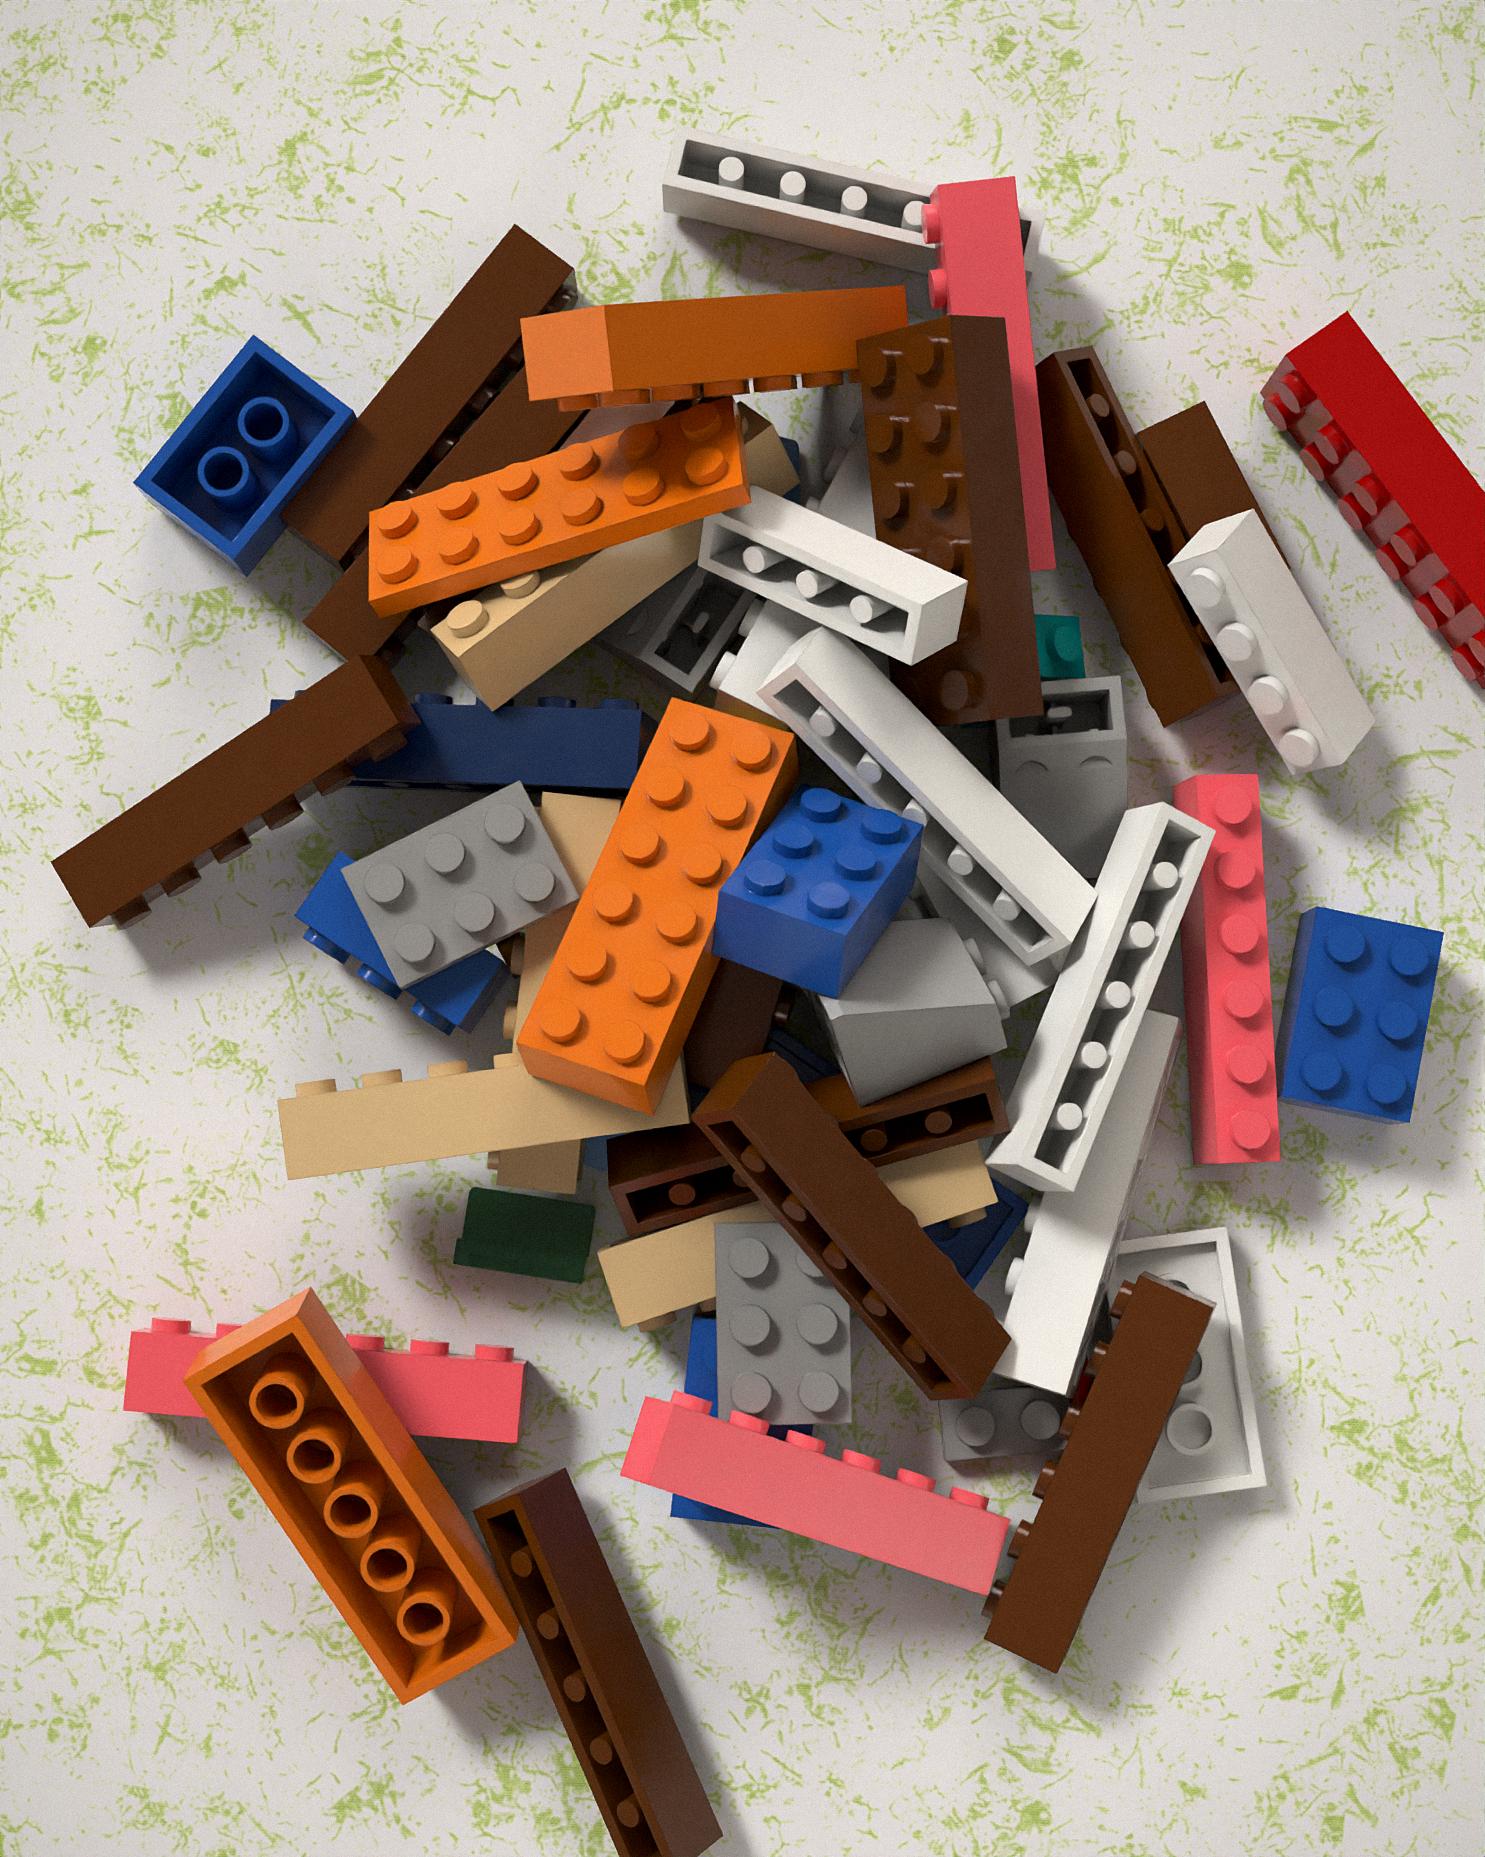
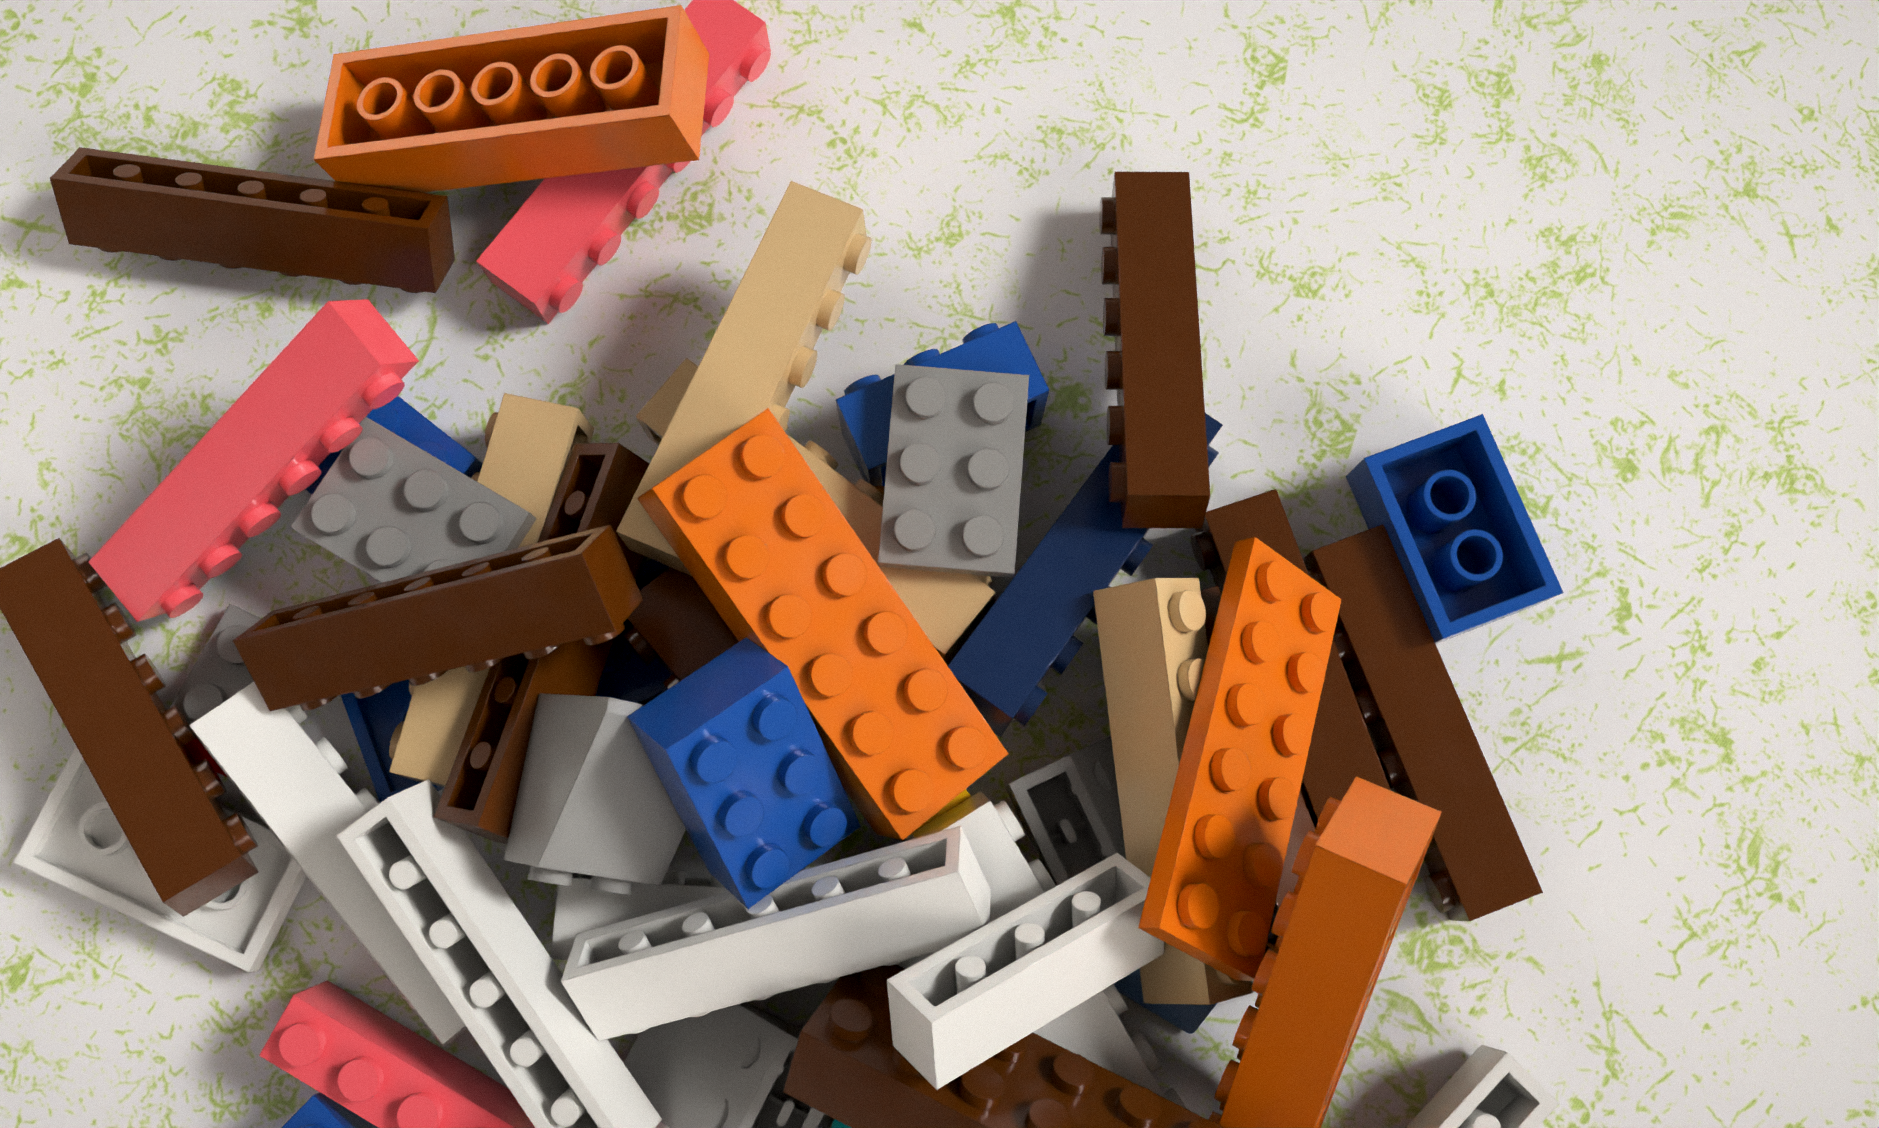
camera: 125 degrees right, 5 degrees down
(526, 1235) = (633, 370): clear green panel -> none

